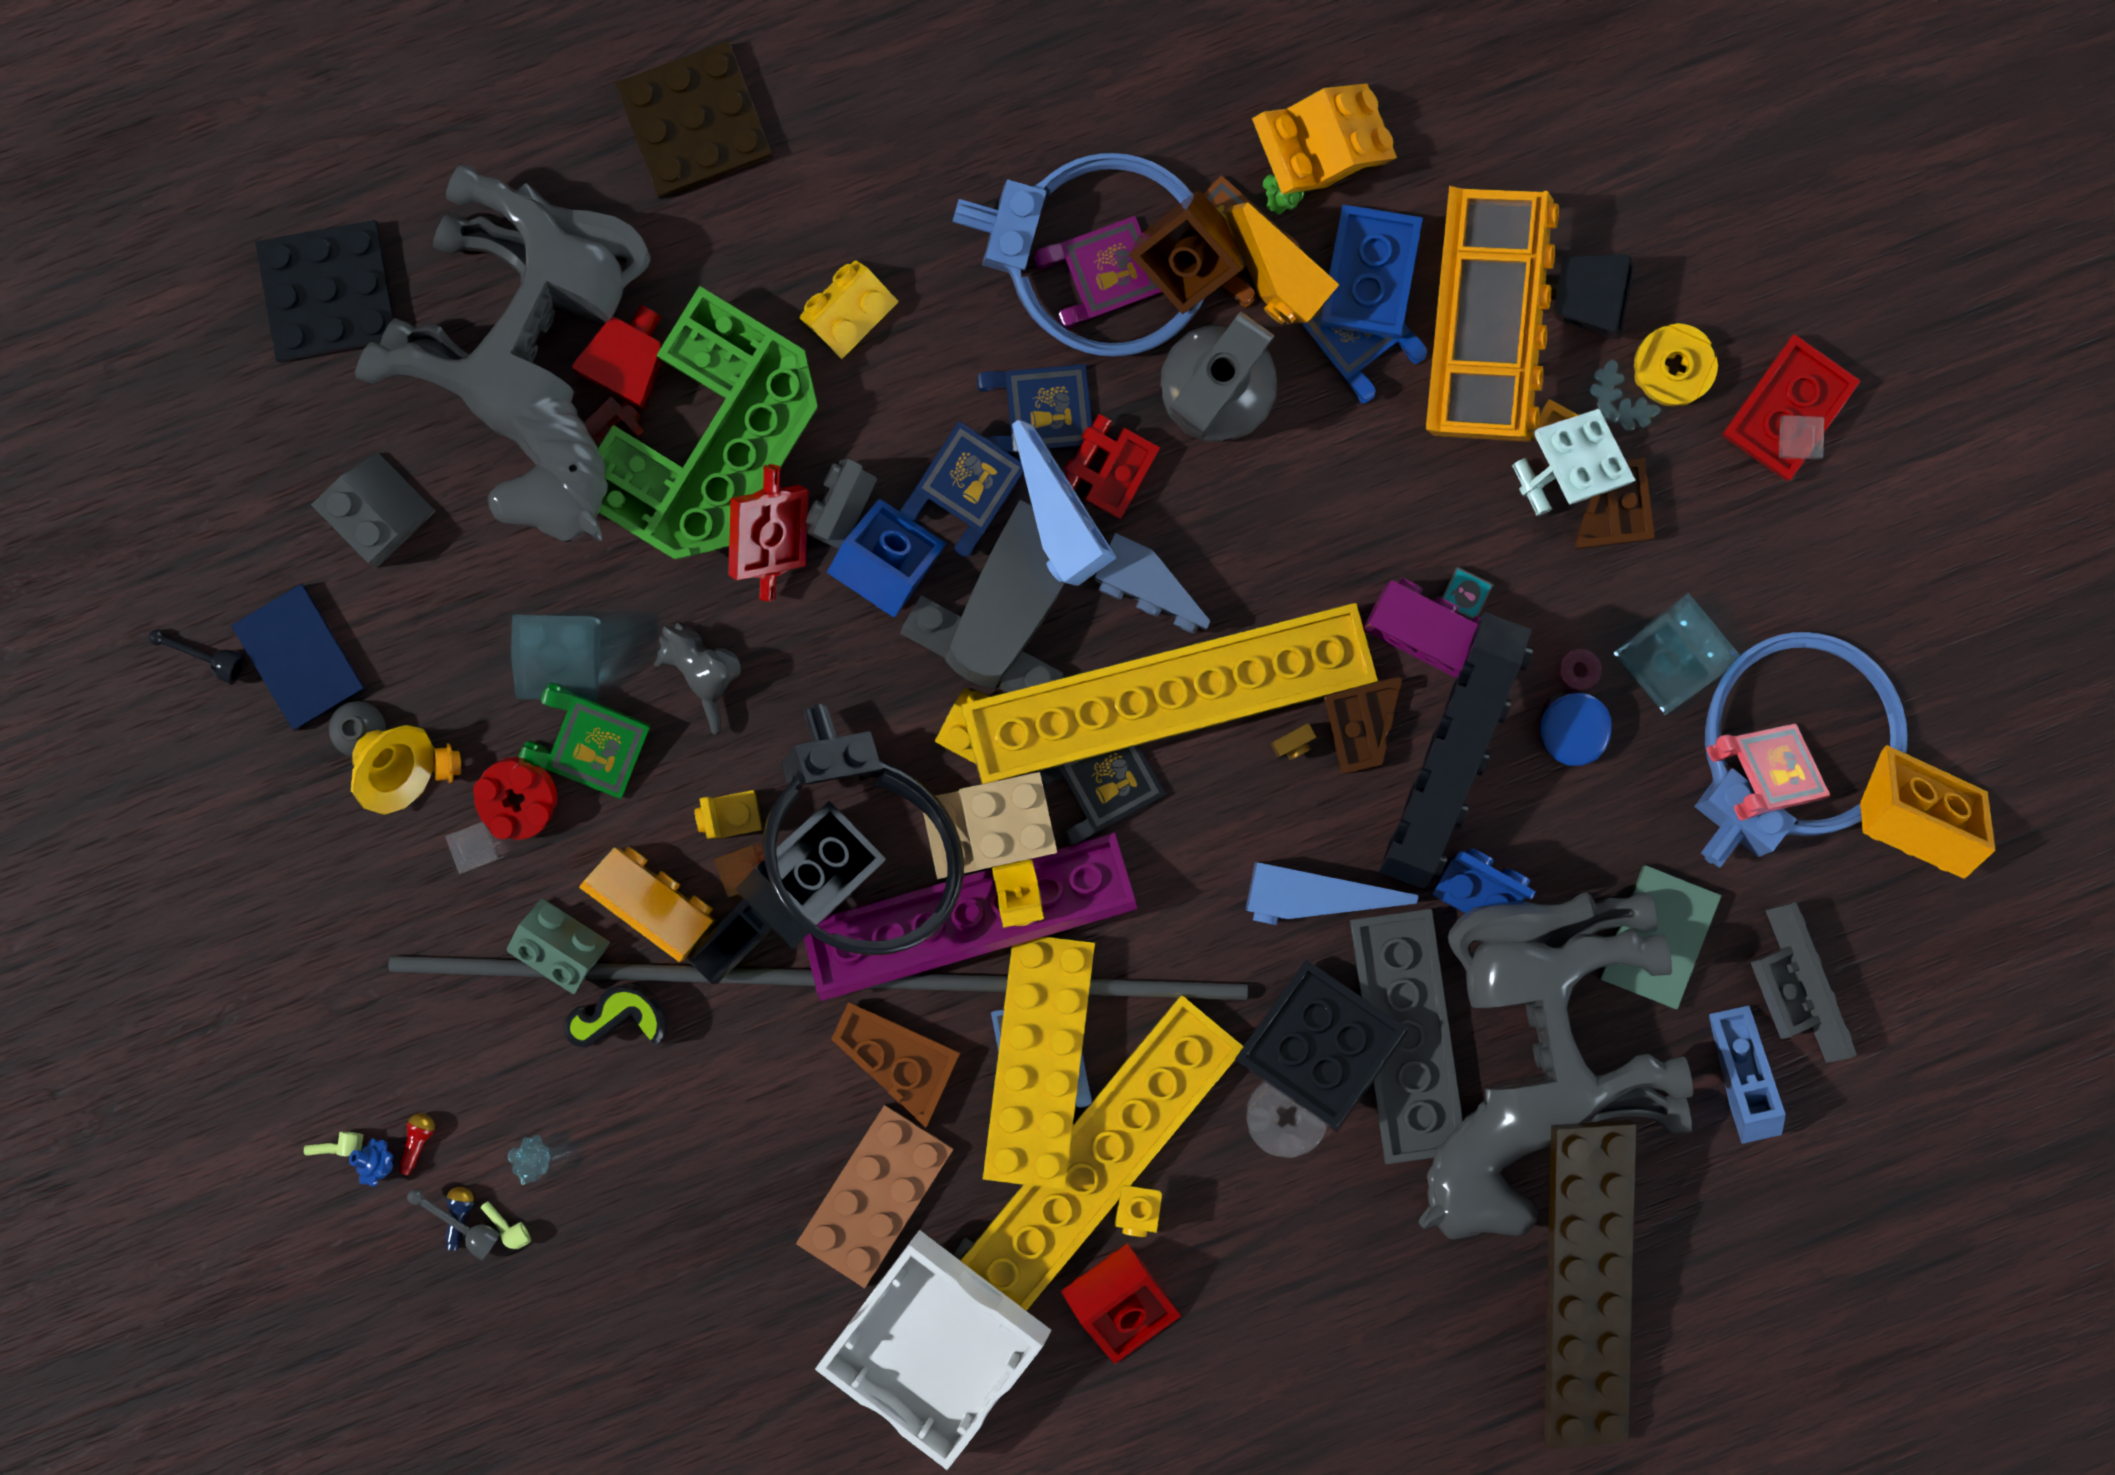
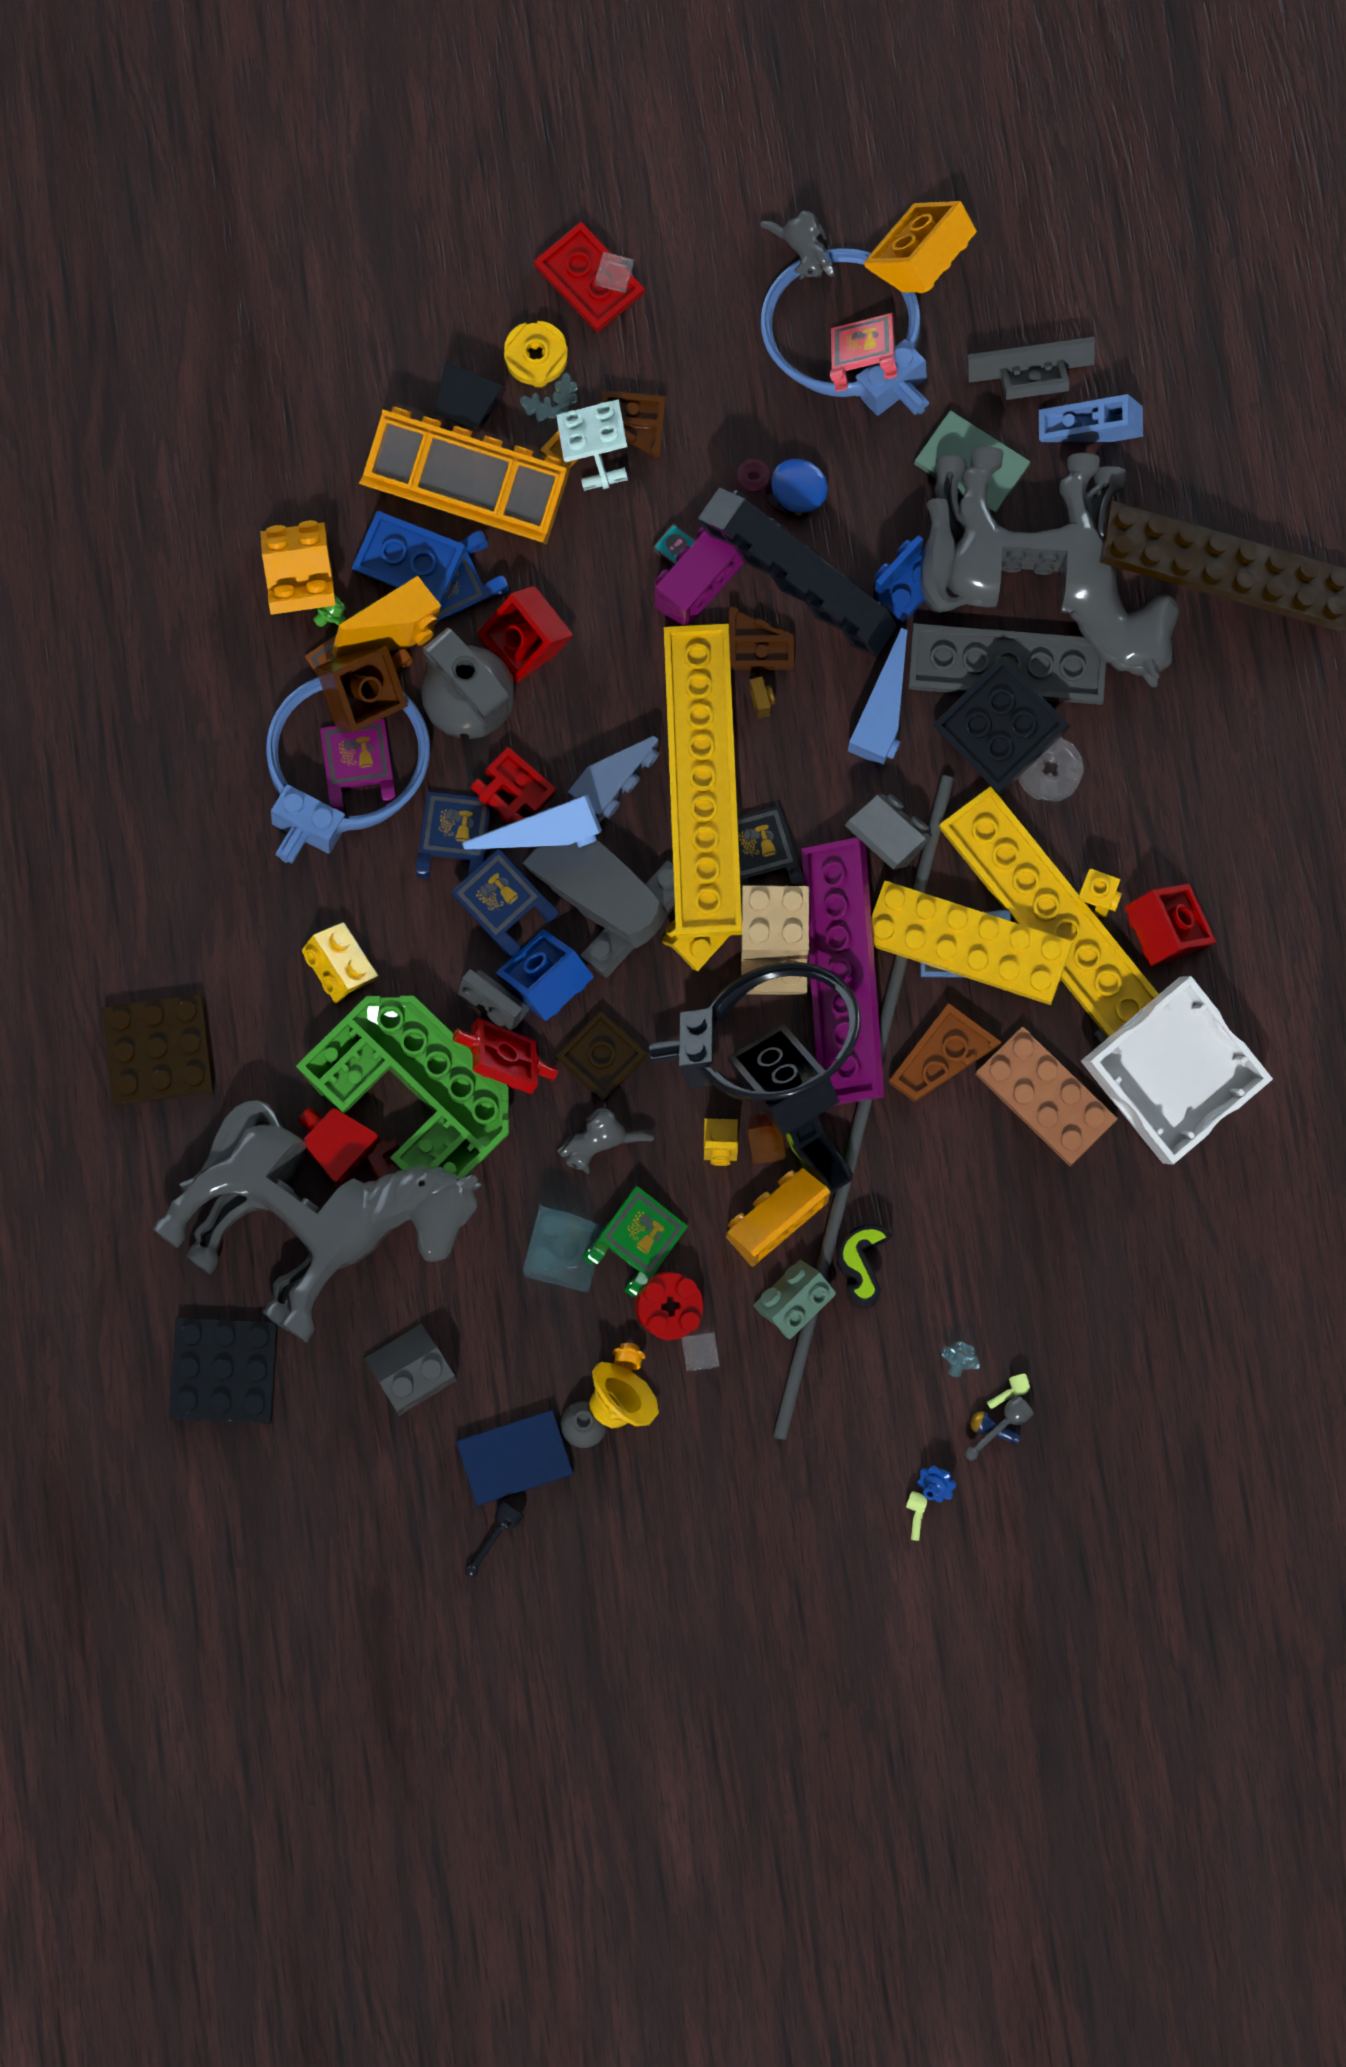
camera: 80 degrees left, 10 degrees down
(419, 1129) = (918, 1443): red piece -> none
(805, 649) = (601, 1055): none -> dark brown tile
(1018, 893) = (834, 924): yellow bracket -> none
(1153, 935) = (889, 831): none -> dark grey slope
(1309, 435) = (525, 632): none -> red slope
(1677, 654) = (758, 400): clear light blue slope -> none
(1904, 666) = (806, 239): none -> dark grey animal

